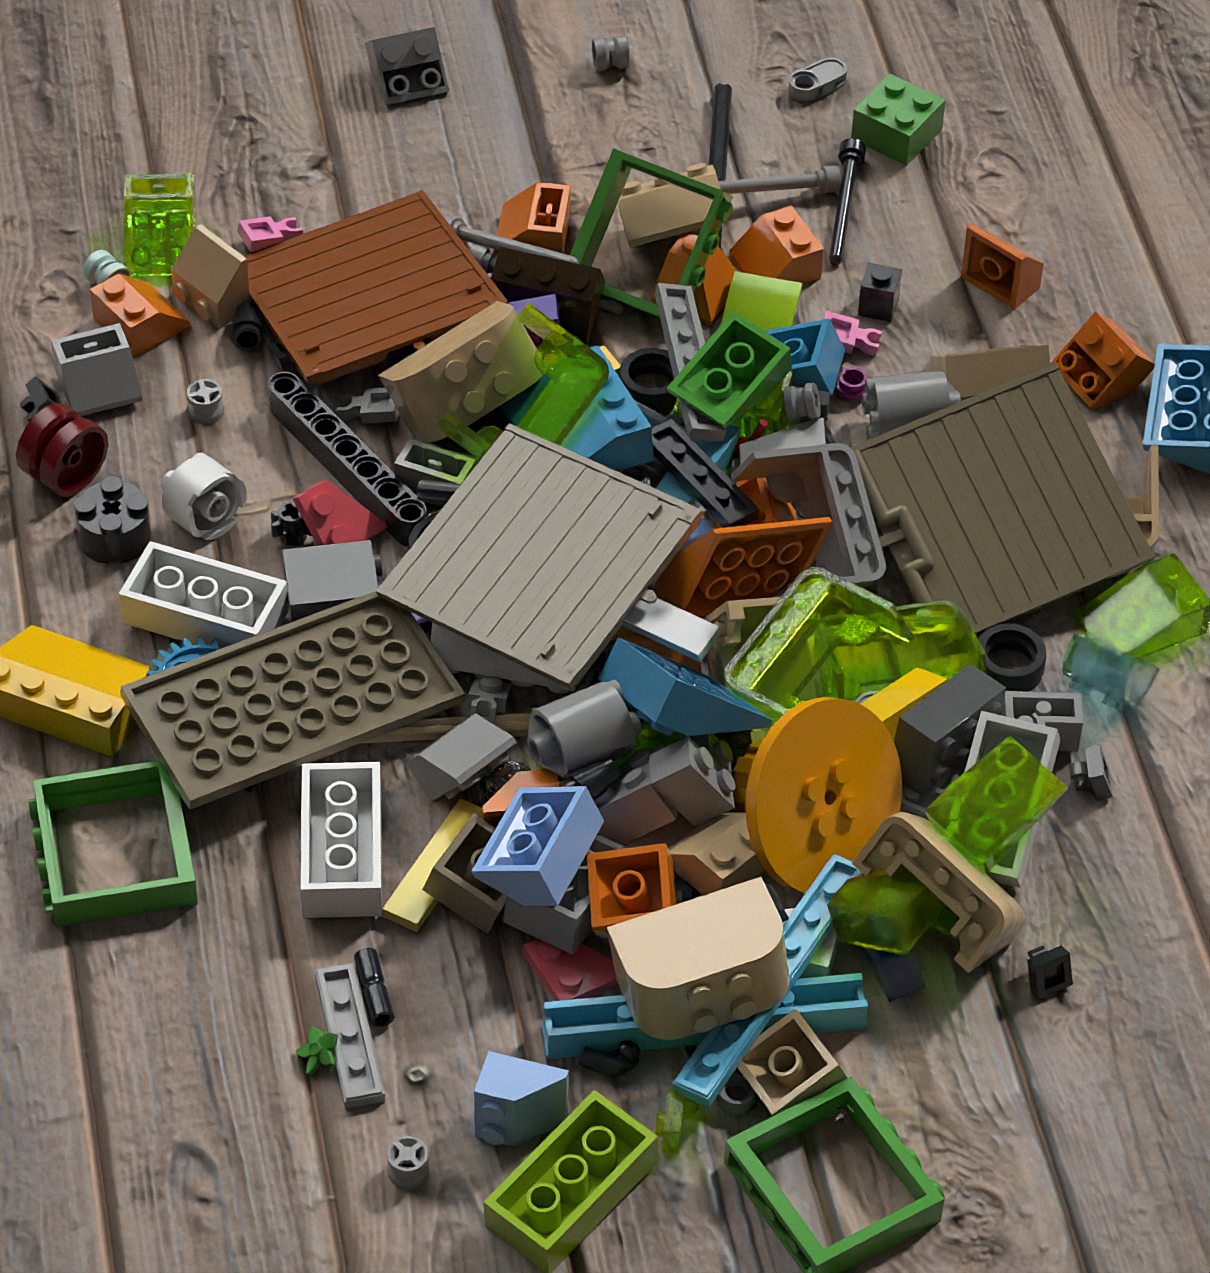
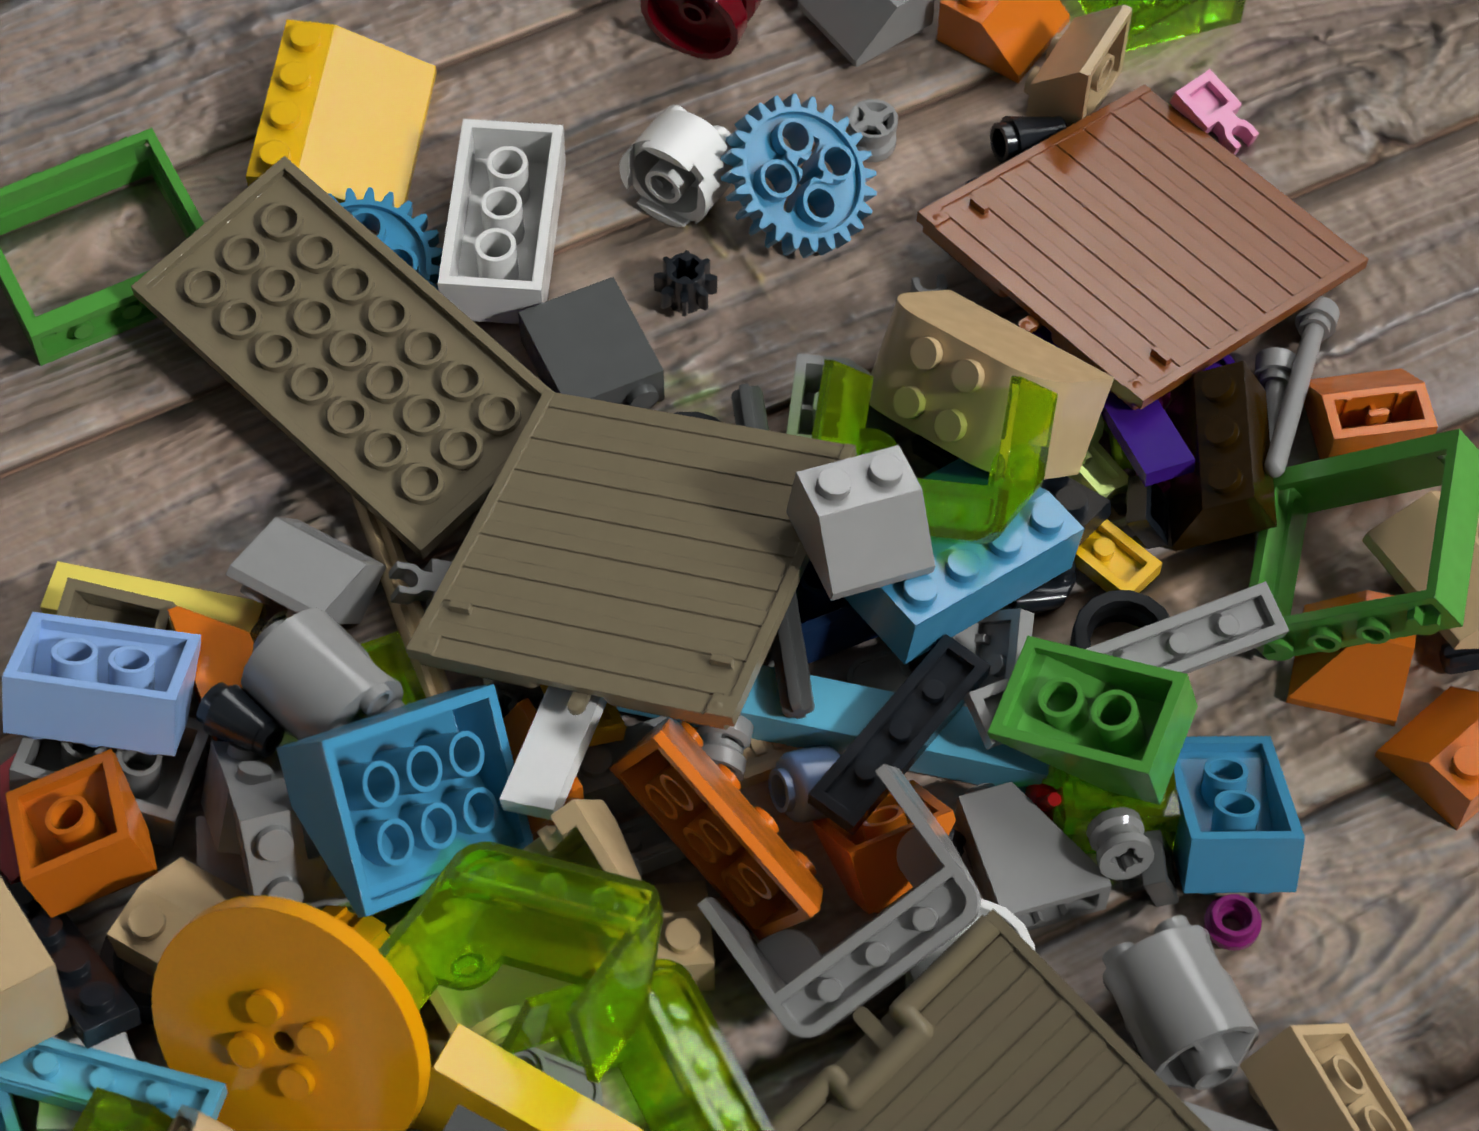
camera: 75 degrees right, 10 degrees up
(112, 521) = (615, 88): black brick -> none
(240, 436) = (762, 153): none -> dark azure gear
(336, 516) = (696, 325): coral wing -> none
(341, 840) = (142, 479): white brick -> none
(345, 455) = (835, 291): black beam -> none
(581, 420) = (862, 522): none -> light grey slope
(763, 300) = (1335, 754): lime slope -> none
(852, 336) = (1332, 880): bright pink plate -> none
(879, 292) = (1437, 912): black brick -> none

